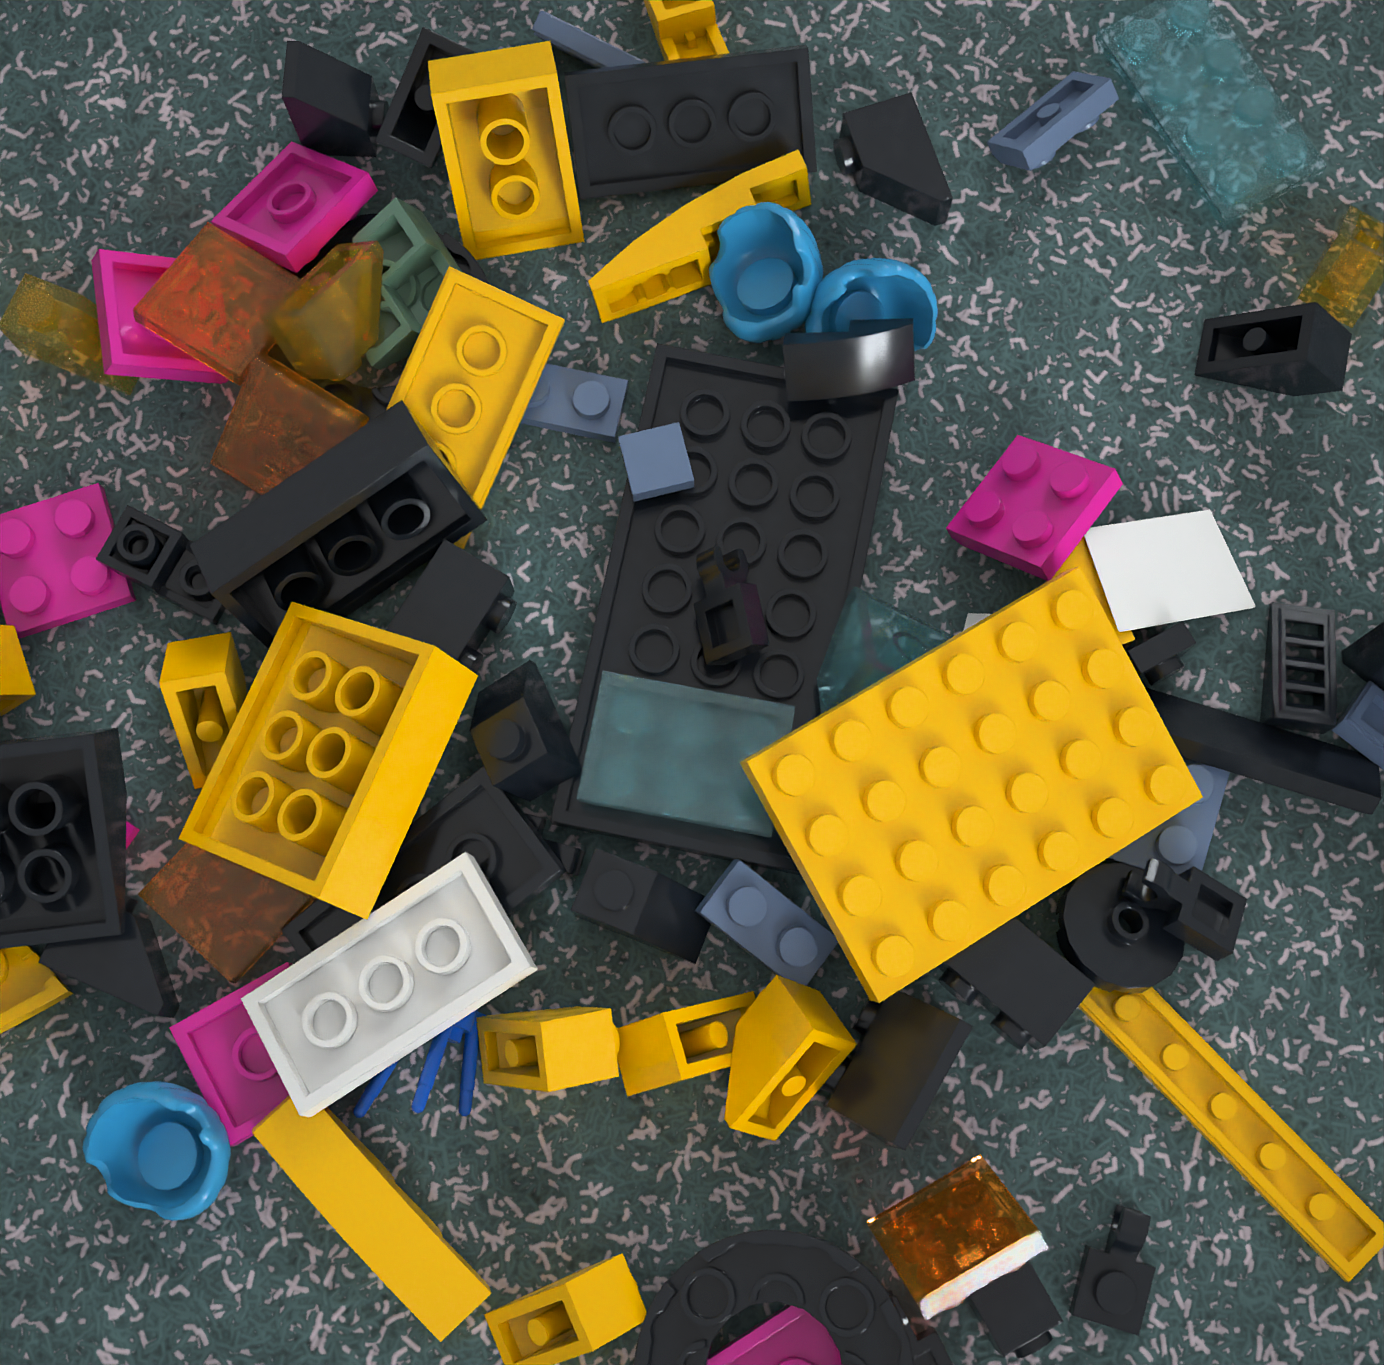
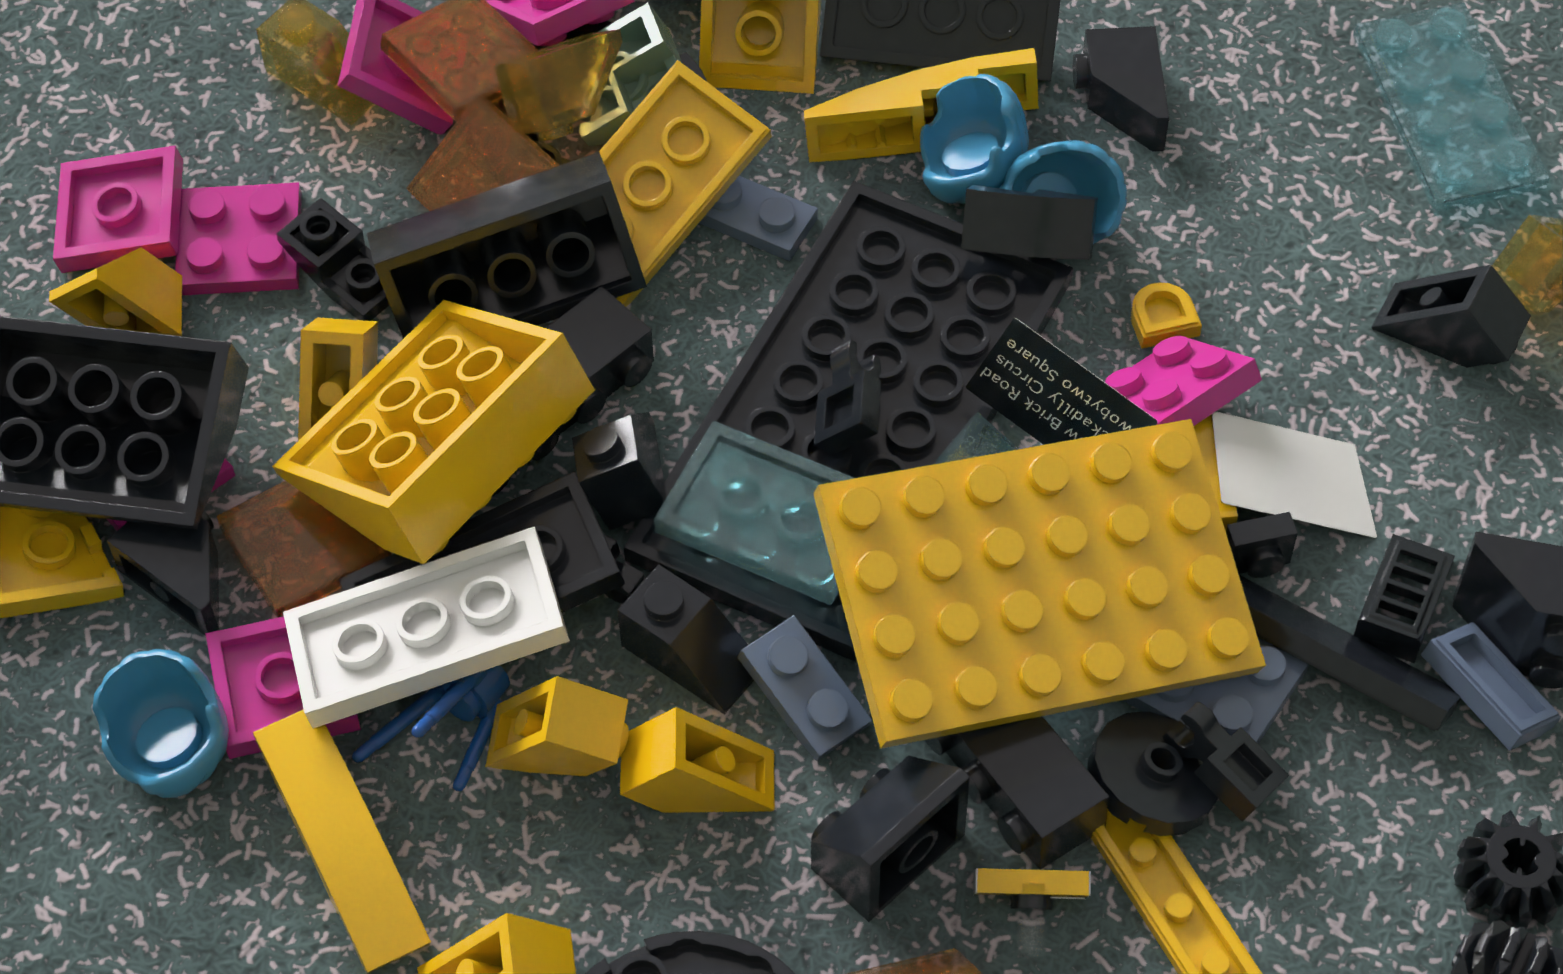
camera: 15 degrees right, 20 degrees down
(656, 461) = (820, 271): sand blue tile -> none
(782, 1057) = (779, 798): yellow slope -> none
(935, 560) = (1050, 391): none -> black sticker
(995, 414) = (1162, 313): none -> yellow tile
(1037, 1082) = (1032, 891): none -> yellow piece
(1053, 120) = (1308, 79): sand blue plate -> none

